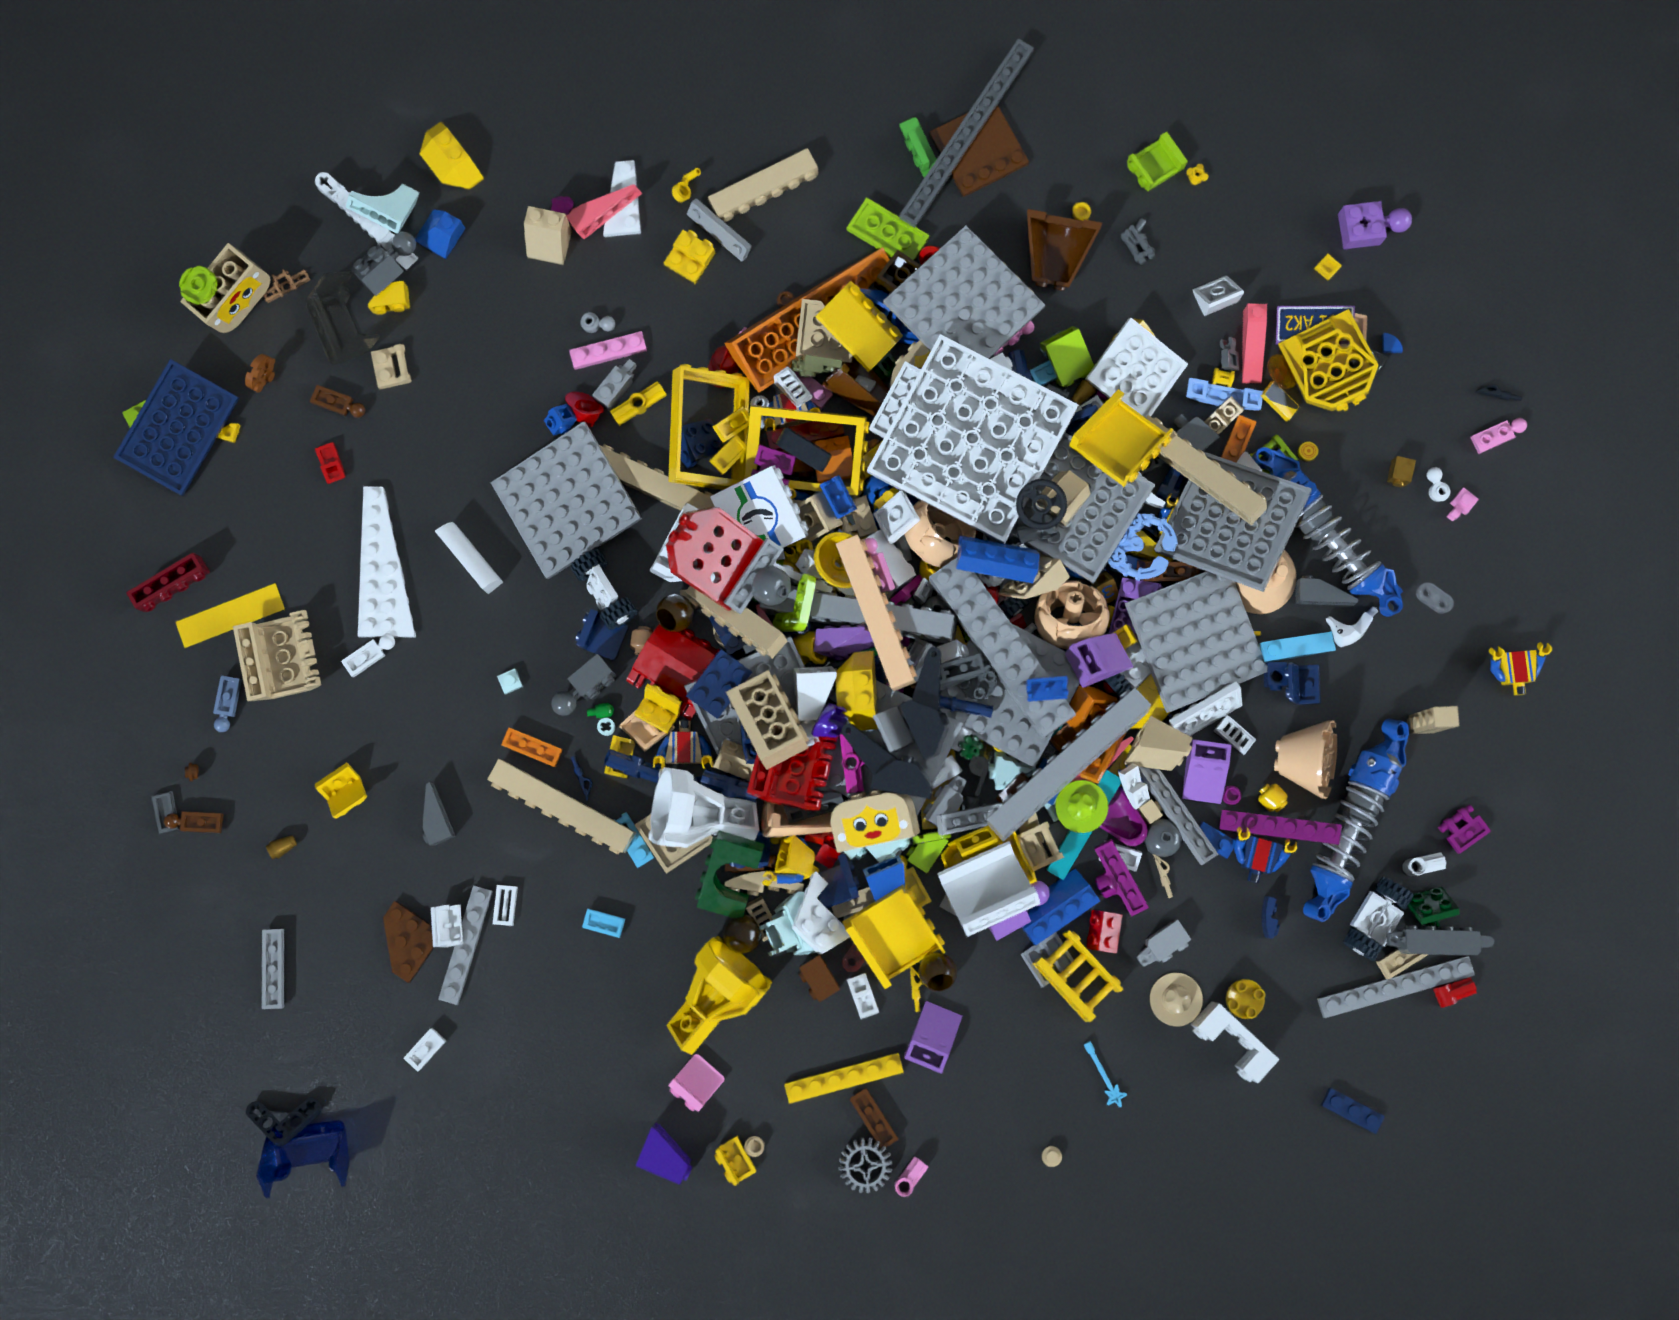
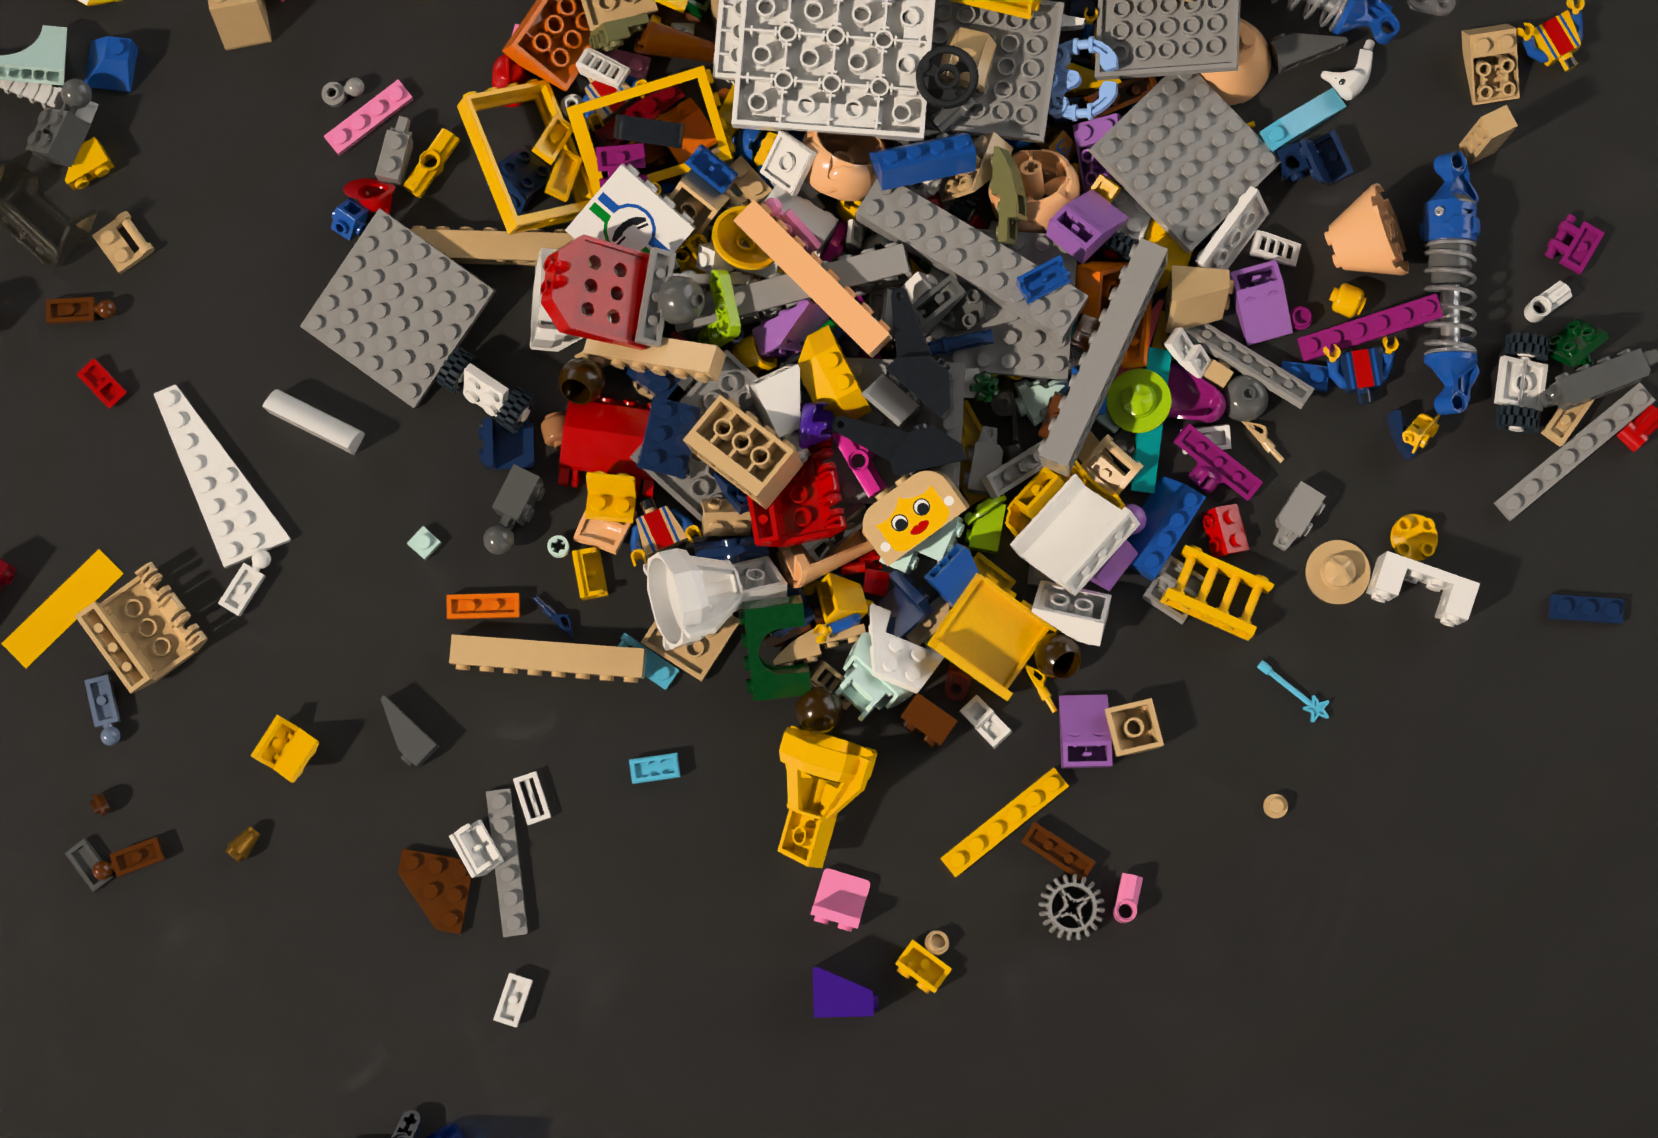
camera: 25 degrees left, 0 degrees up
(273, 969) = (296, 986): light grey plate -> none
(601, 711) = (544, 530): green cylinder -> none
(632, 766) = (609, 575): dark blue piece -> none
(948, 771) = (972, 425): white piece -> none
(964, 952) = (1077, 616): none -> white slope
(970, 1051) = (1134, 727): none -> tan slope
(1052, 606) = (1009, 187): none -> olive slope
(1281, 922) = (1421, 431): none -> yellow hinge
(1460, 664) = (1491, 63): none -> tan slope

